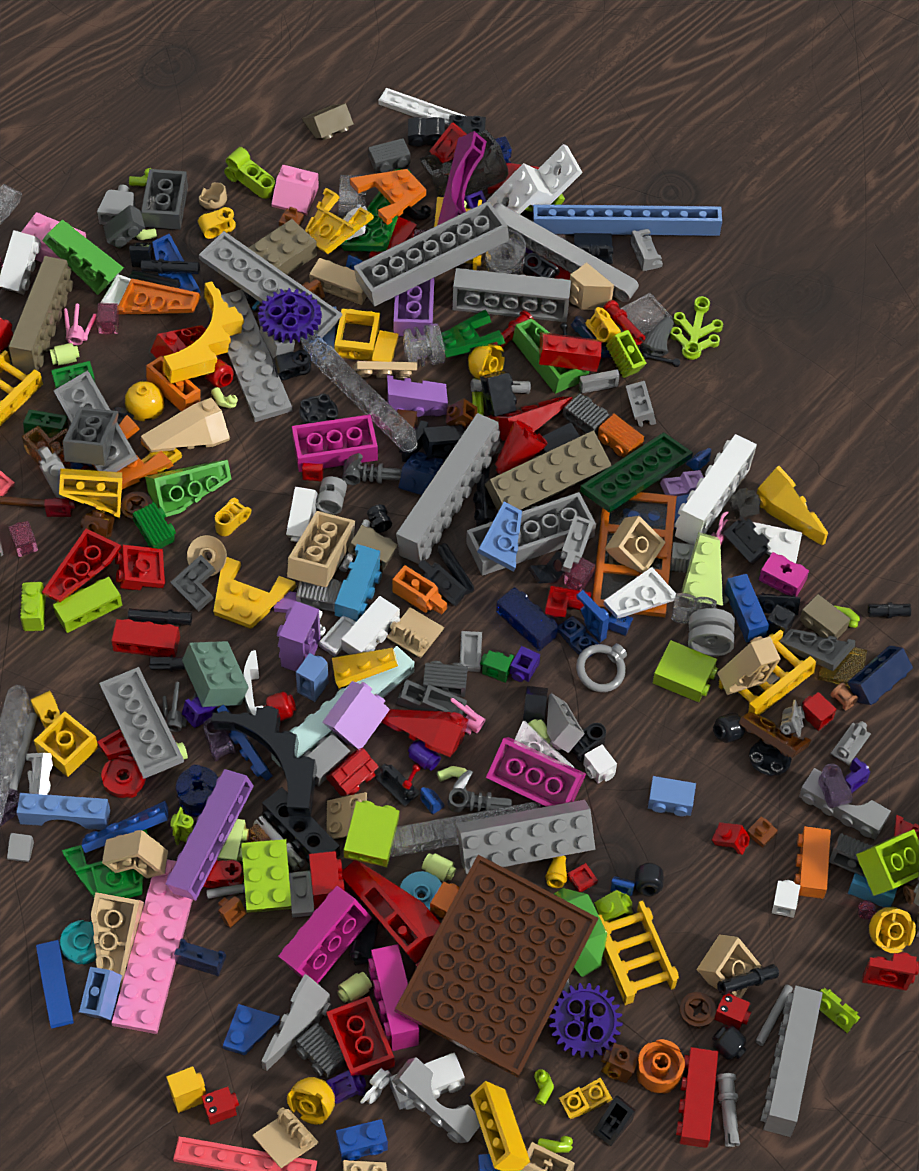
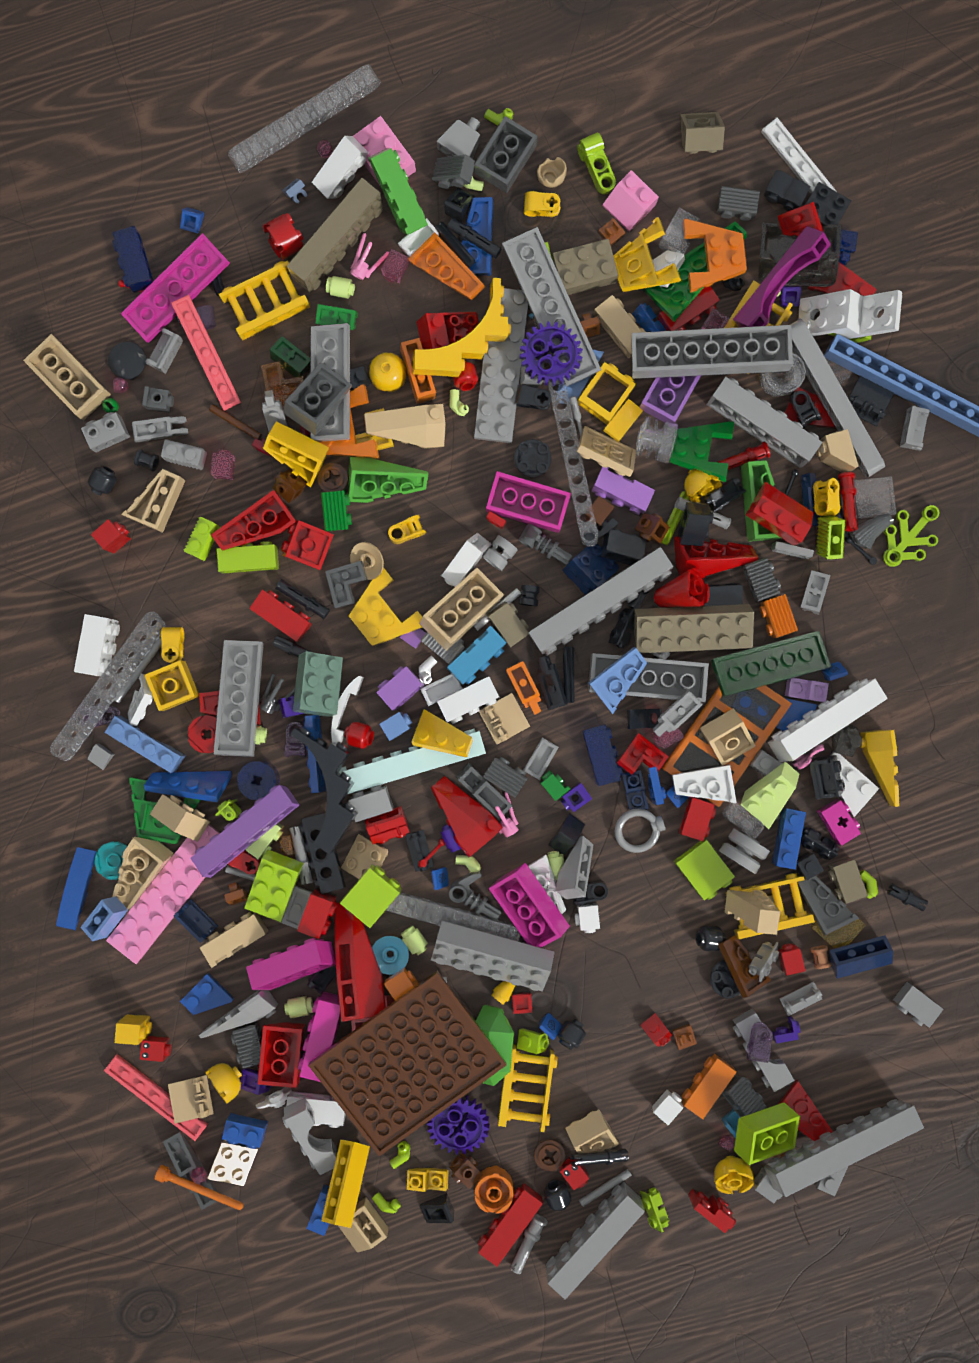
camera: 25 degrees right, 30 degrees up
(250, 951) = (233, 938): none -> tan wedge
(356, 714) = (412, 782): lavender brick -> none
(516, 360) = (719, 499): none -> black hinge
(650, 631) = (697, 819): none -> red brick
(671, 796) = (629, 973): medium blue brick -> none

